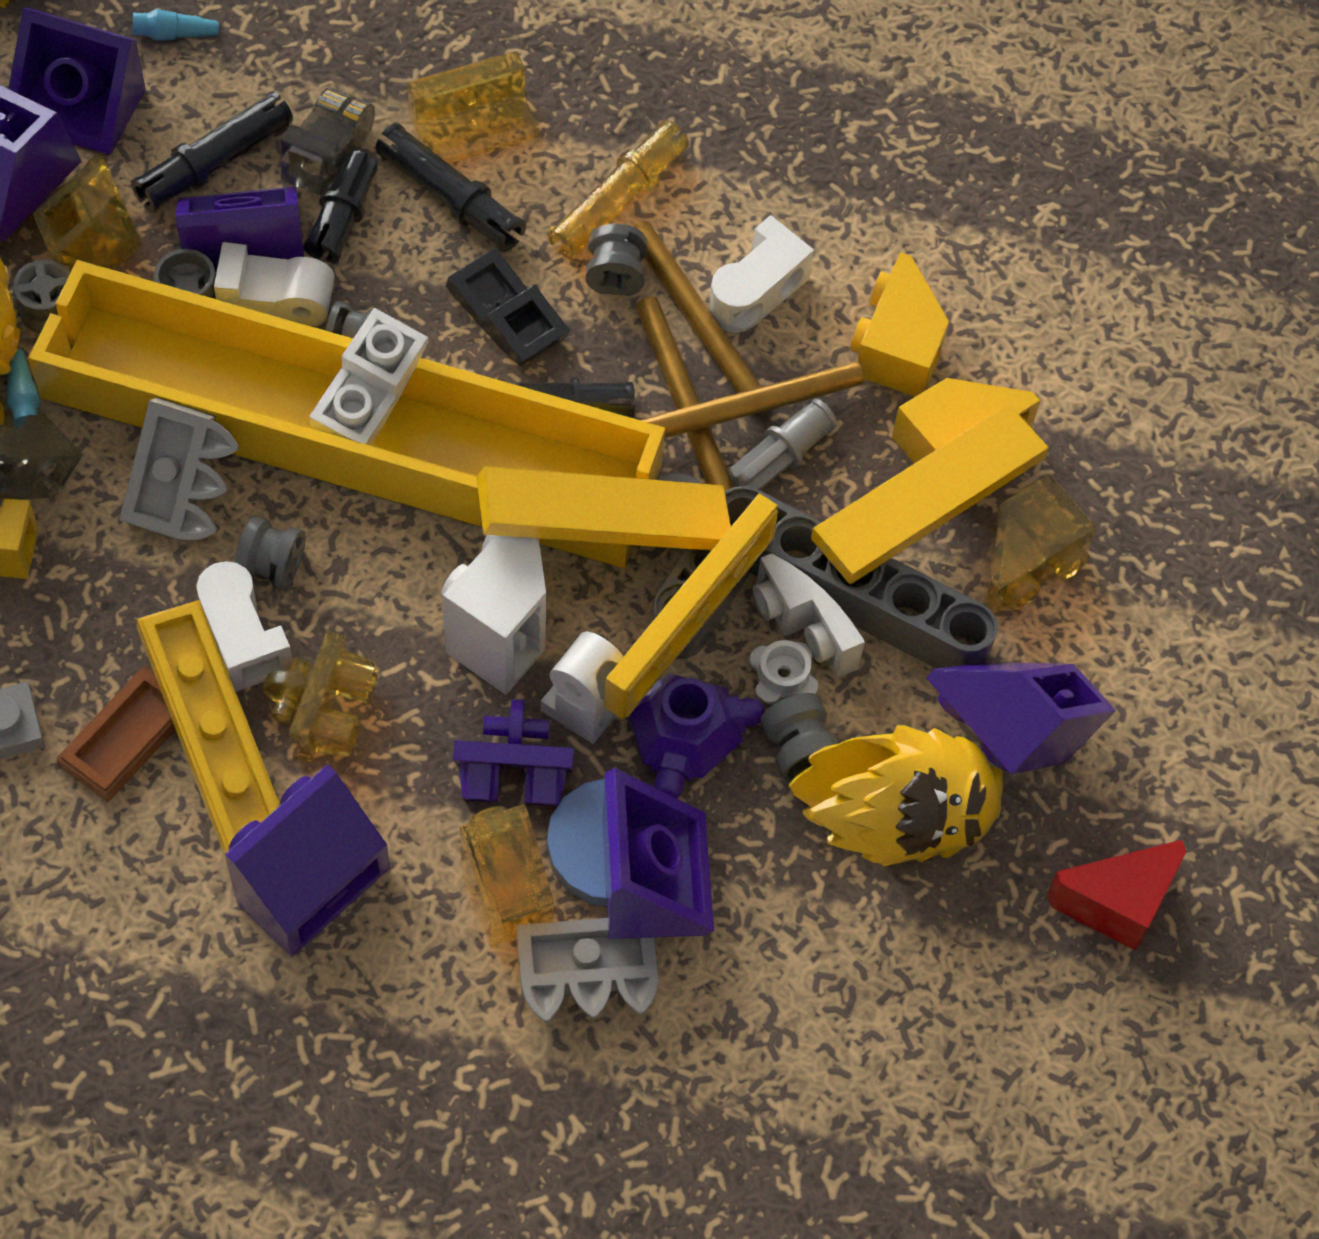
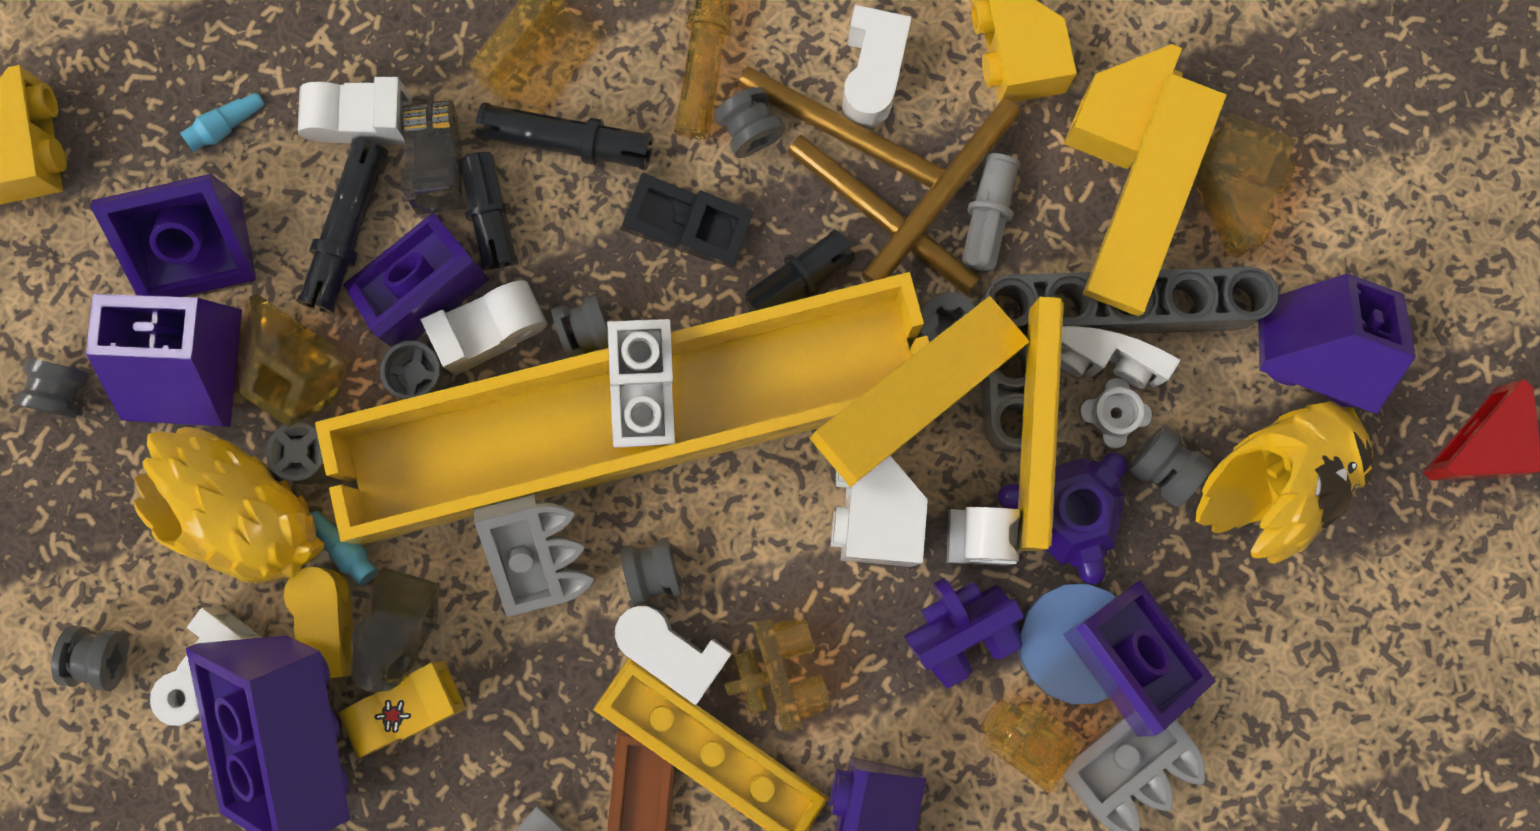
camera: 25 degrees left, 20 degrees up
(273, 64) = (353, 111): none -> white leg

